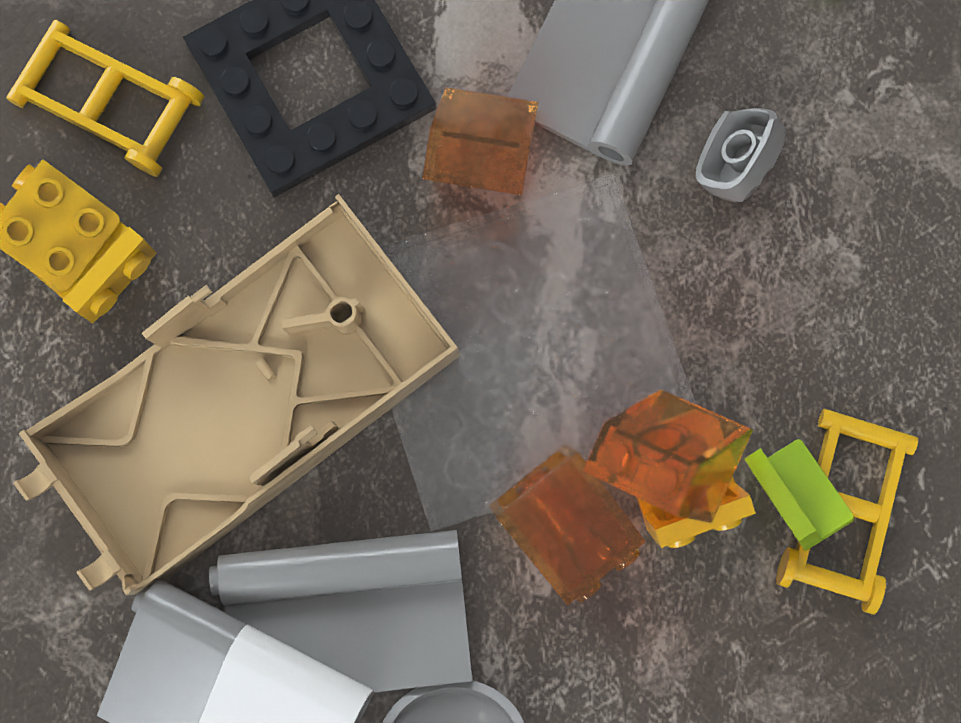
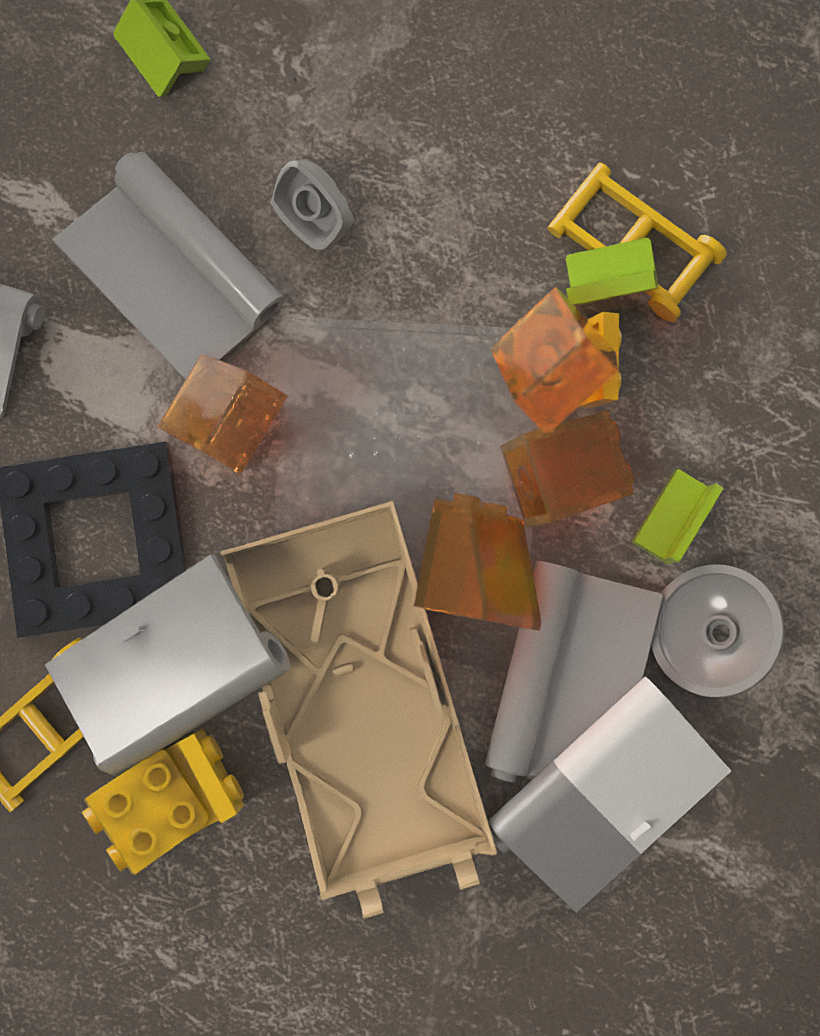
camera: 70 degrees left, 5 degrees up
(202, 187) = (165, 667): none -> light grey door
(422, 461) = (478, 564): none -> clear orange slope
(563, 664) = (676, 517): none -> lime panel

